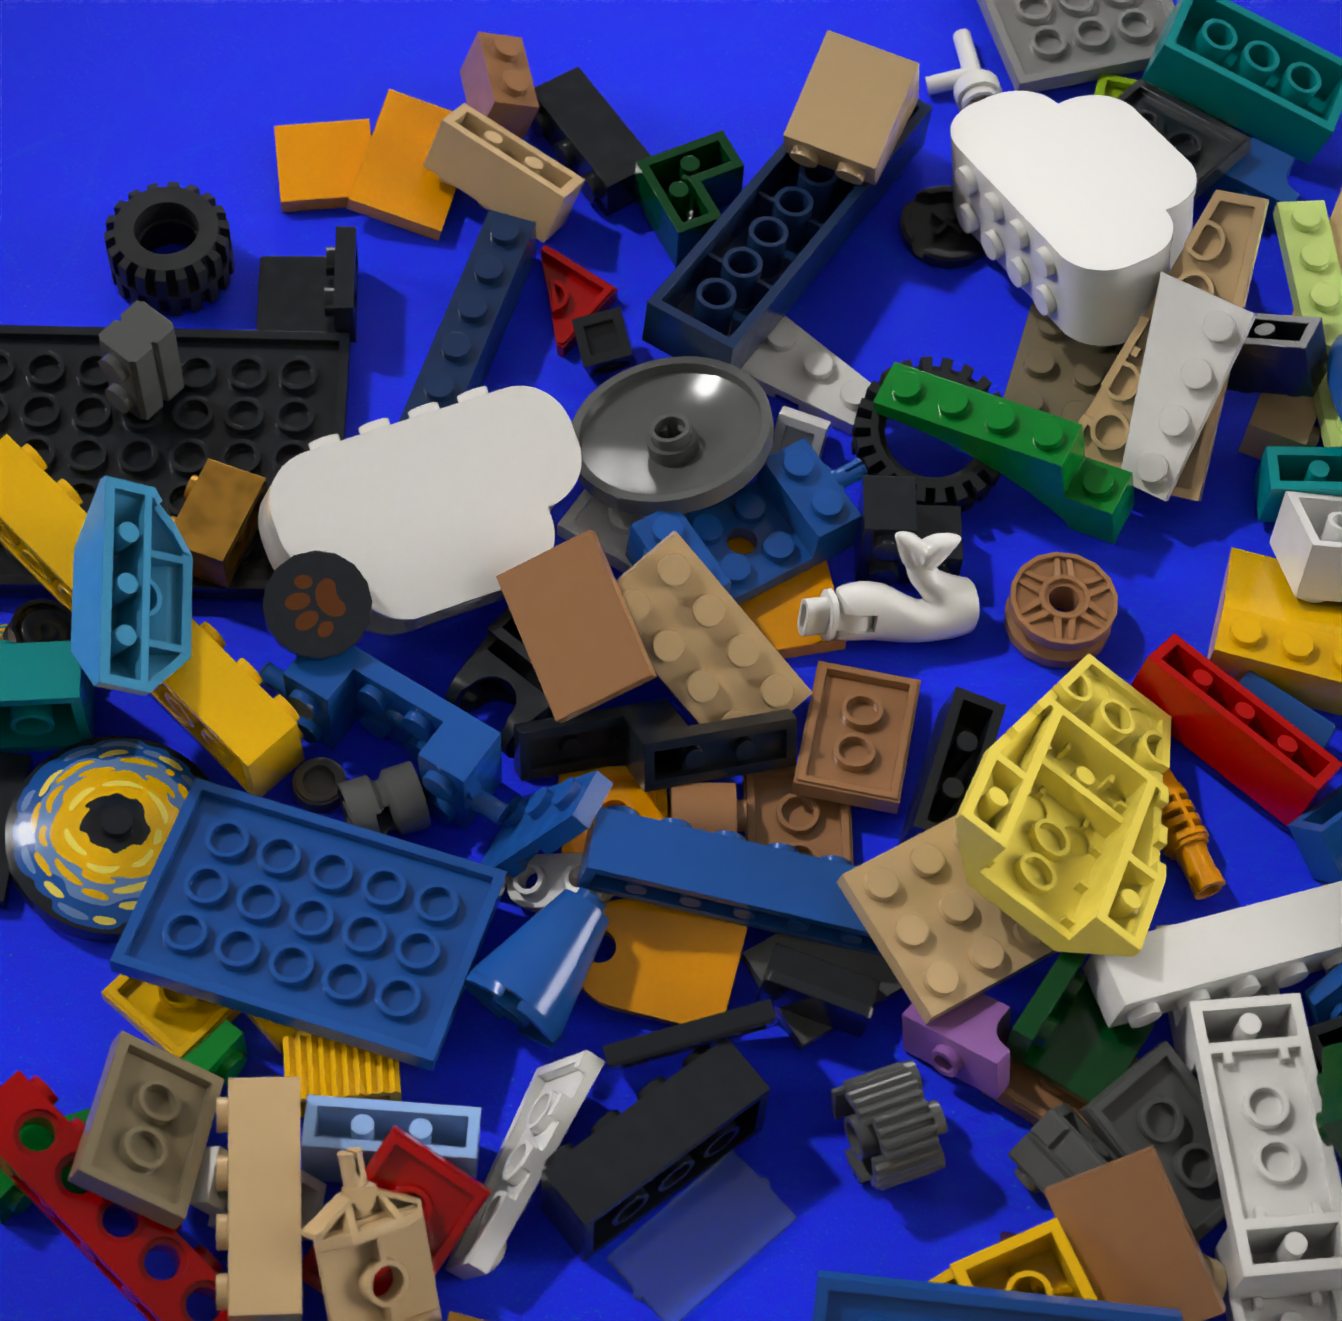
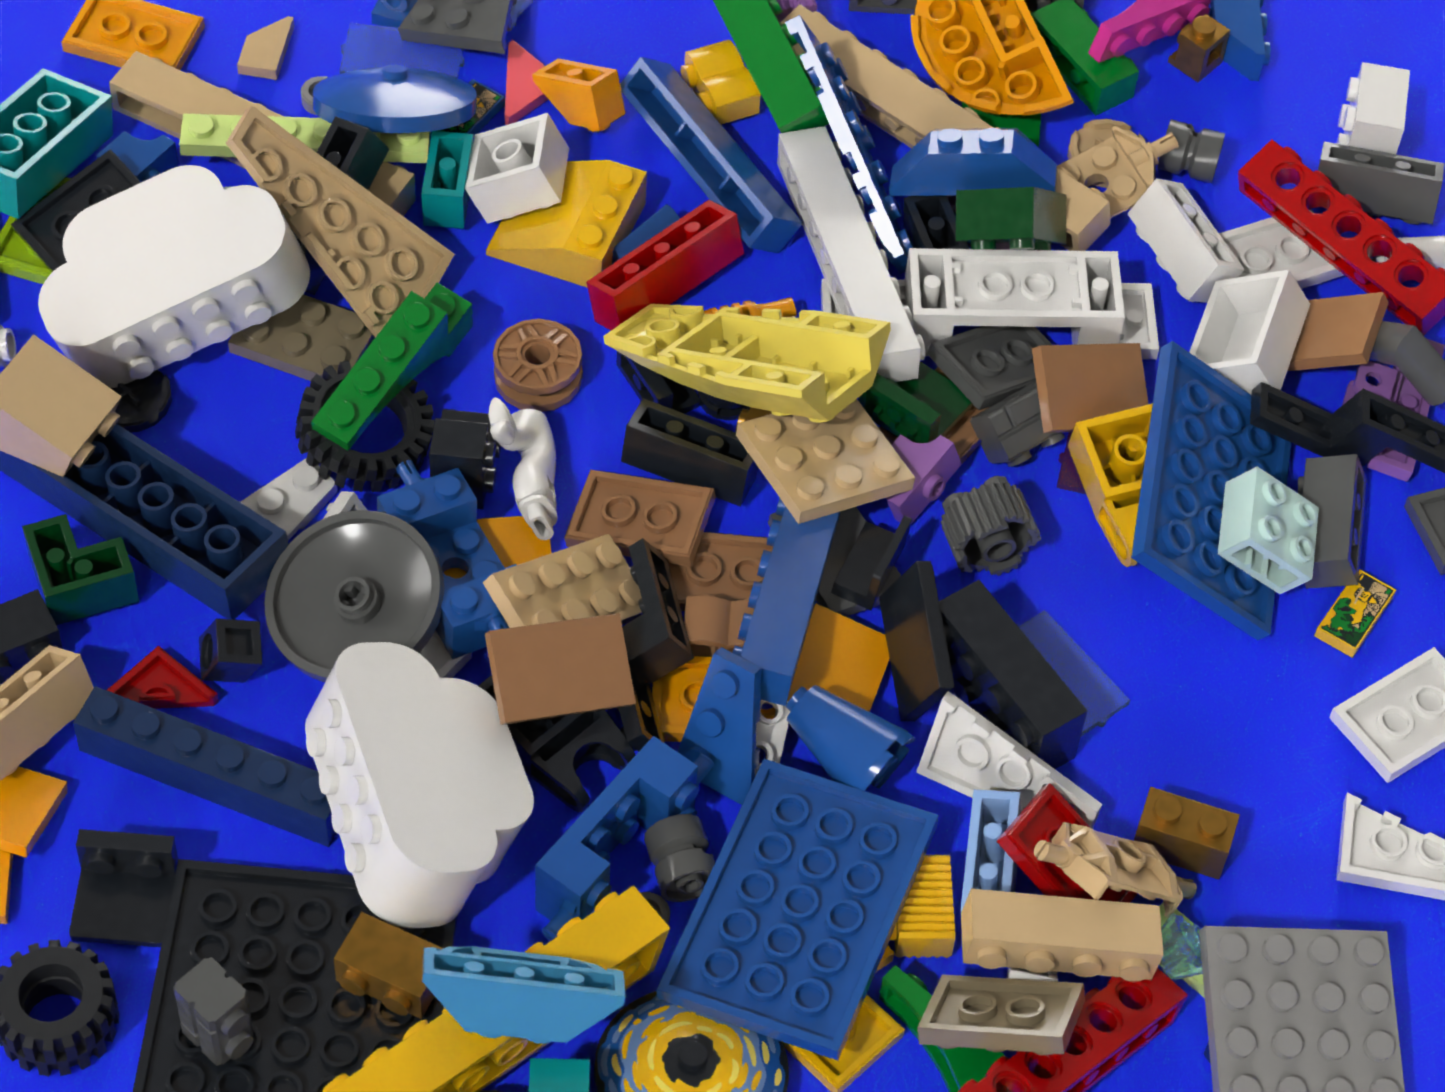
camera: 85 degrees left, 5 degrees down
(317, 605) = (529, 853): black tile -> none
(1181, 376) = (356, 213): white wing -> none

